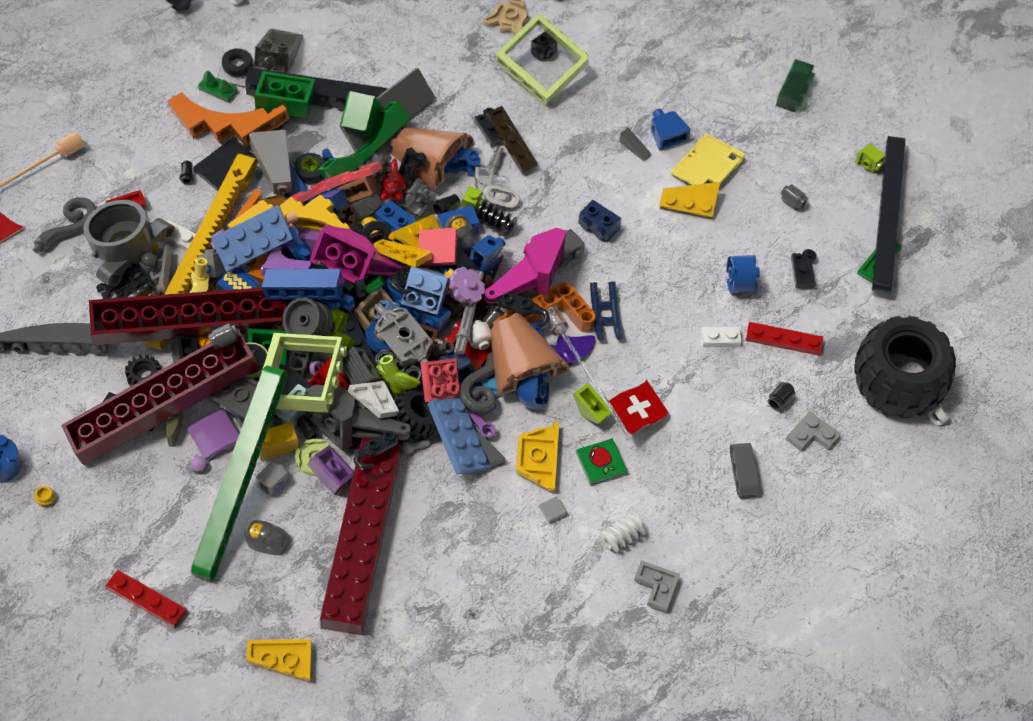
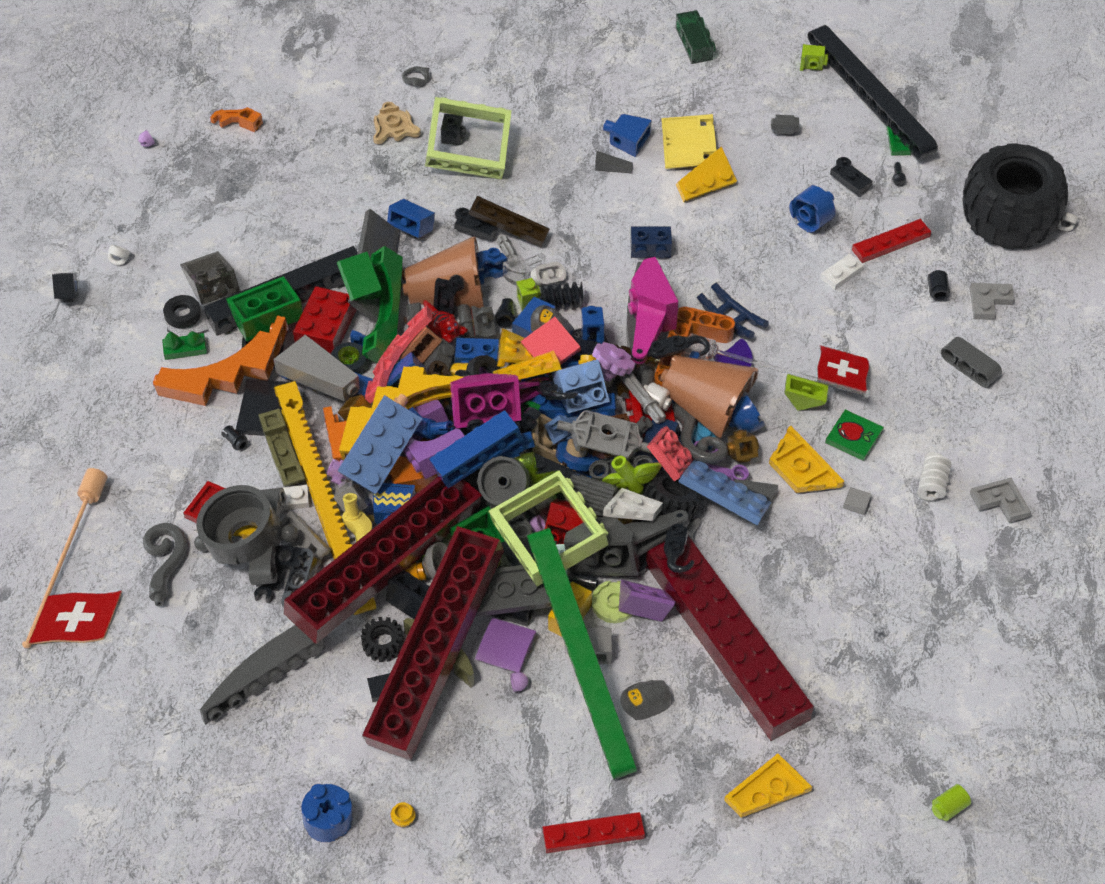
camera: 35 degrees left, 5 degrees down
(212, 185) = (281, 448): none -> olive slope
(224, 336) = (456, 539): dark grey brick -> none
(317, 129) = (325, 318): none -> red brick
(447, 93) = (411, 218): none -> blue brick
(502, 415) = (749, 446): none -> pearl gold brick
(841, 294) = (899, 177): none -> black piece

